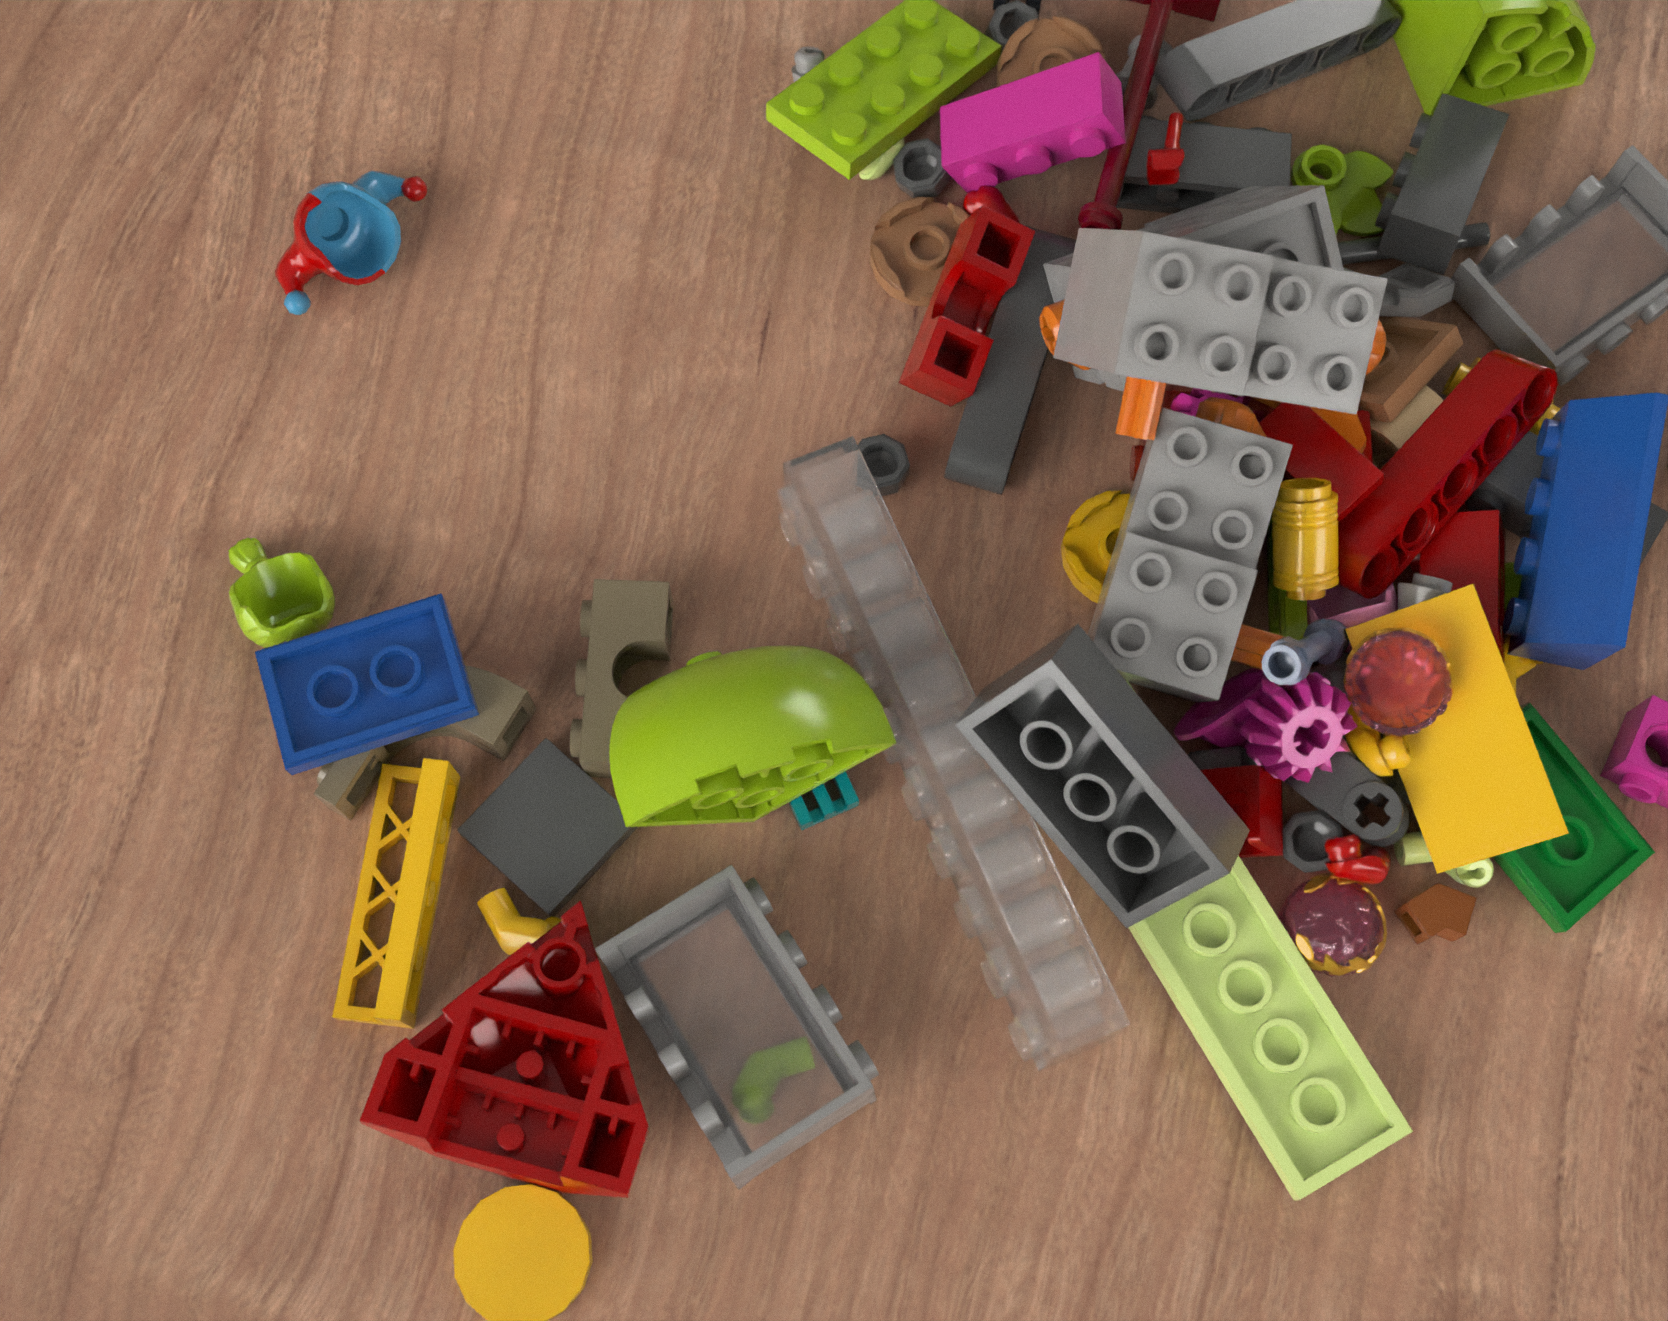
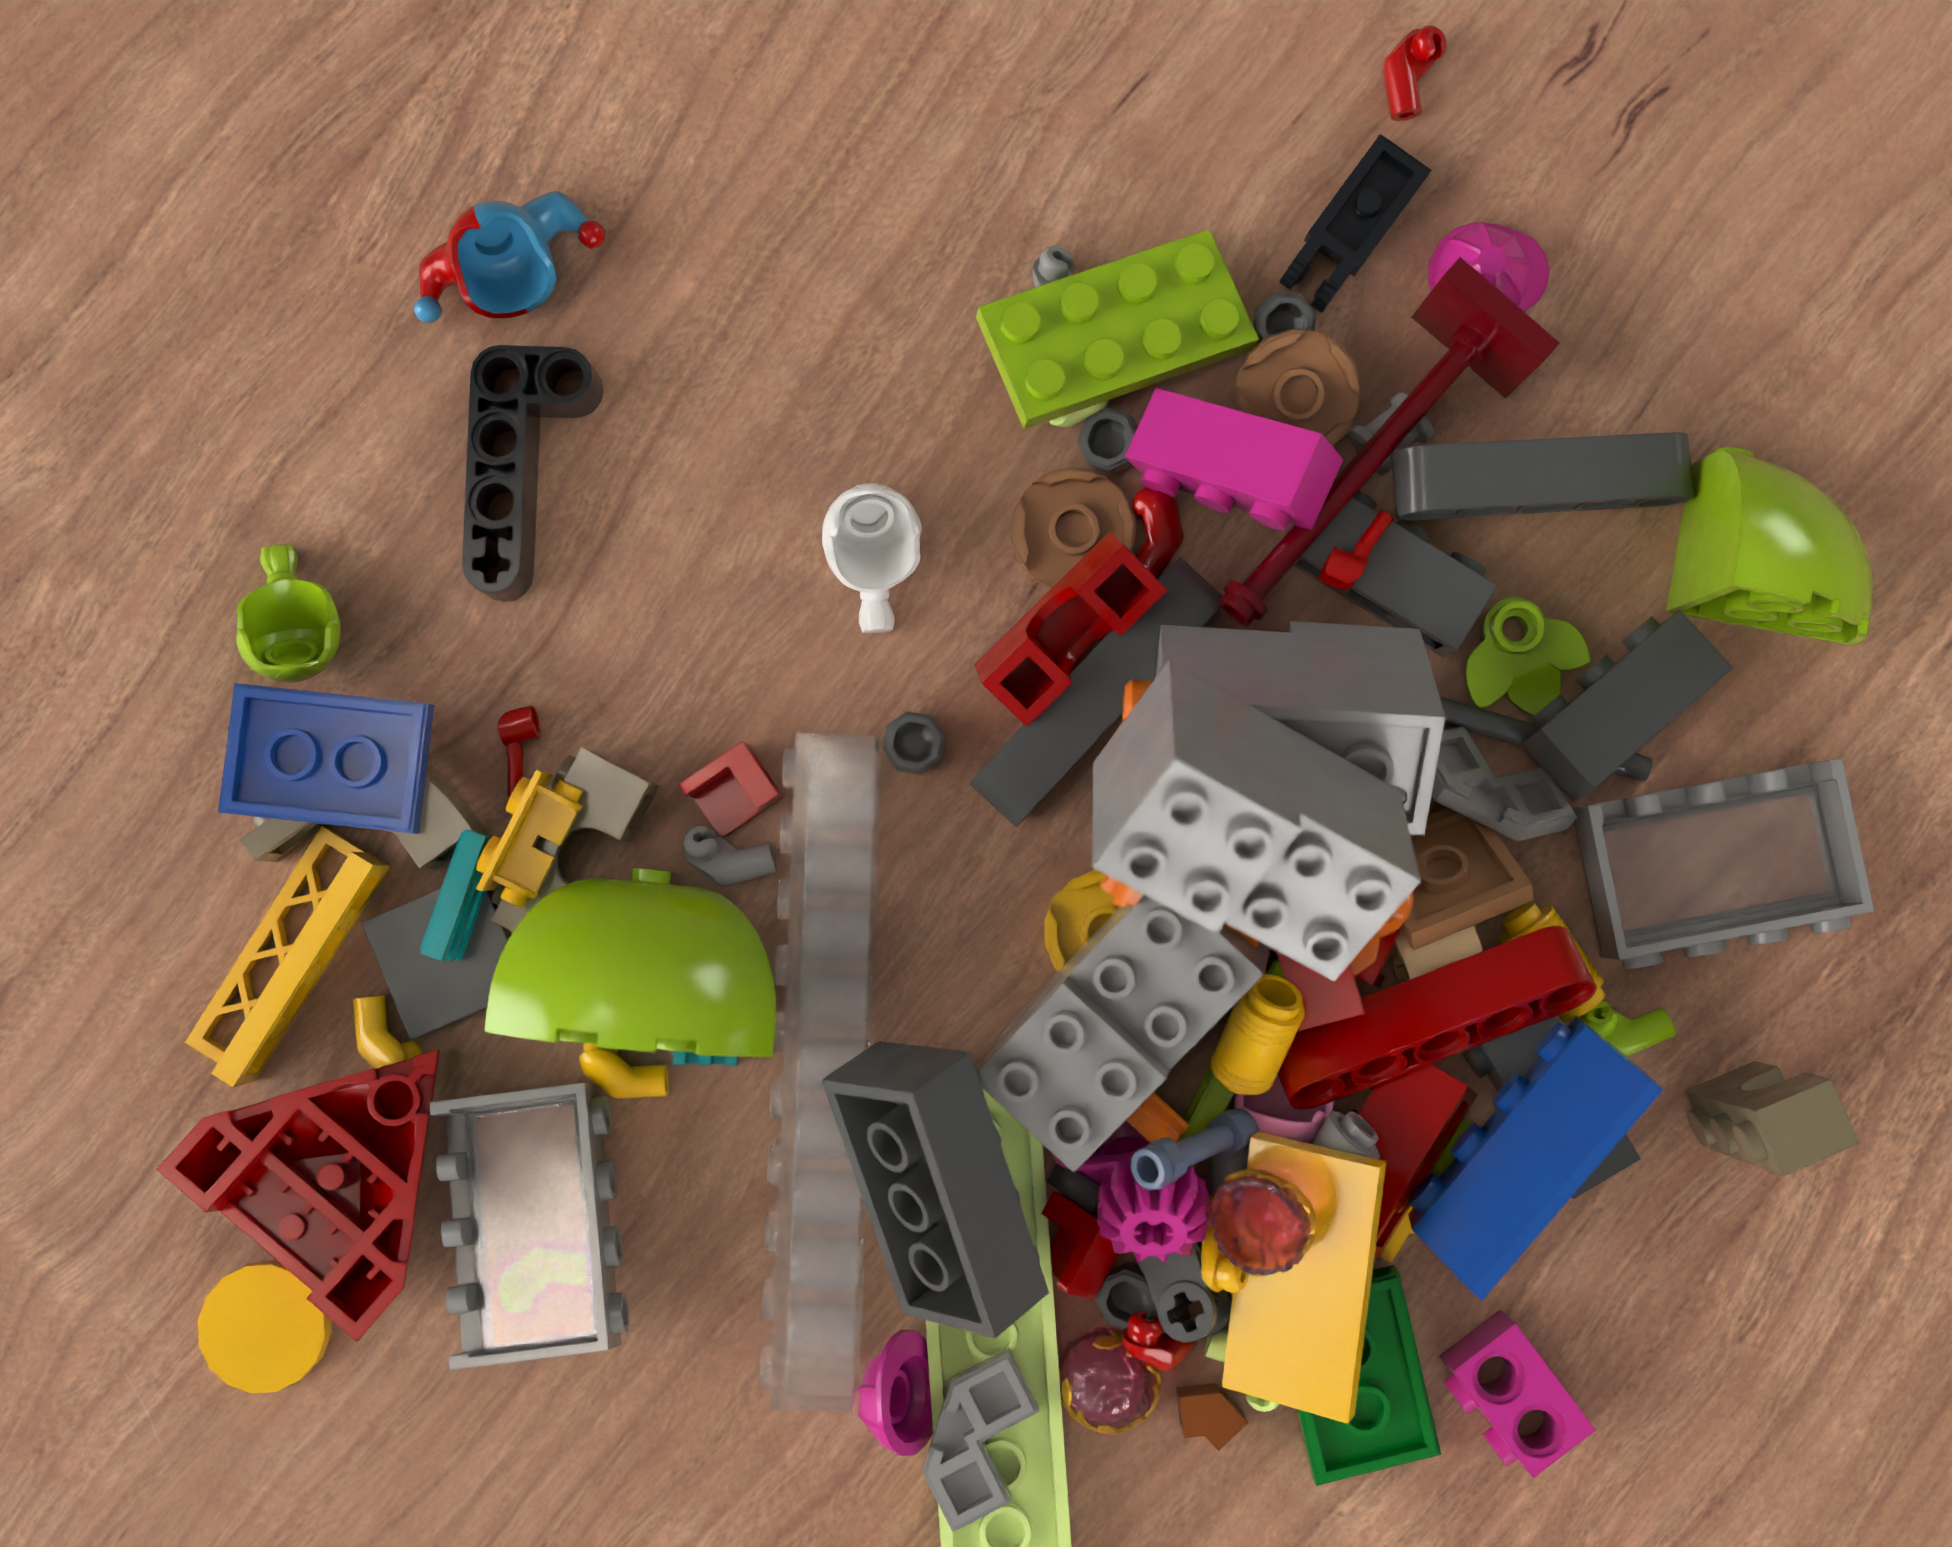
camera: 30 degrees right, 15 degrees up
(425, 399) = (517, 471): none -> black beam
(525, 602) = (514, 729): none -> red hand
(542, 752) = (457, 901): none -> teal tile
(579, 693) = (535, 813): none -> yellow hinge
(741, 568) = (732, 789): none -> red panel
(745, 632) = (724, 862): none -> light grey arm
(754, 859) = (621, 1079): none -> yellow arm
(769, 320) = (872, 546): none -> white hair
(1156, 1031) = (898, 1396): none -> dark pink piece
(1239, 1050) = (974, 1409): none -> light grey tile

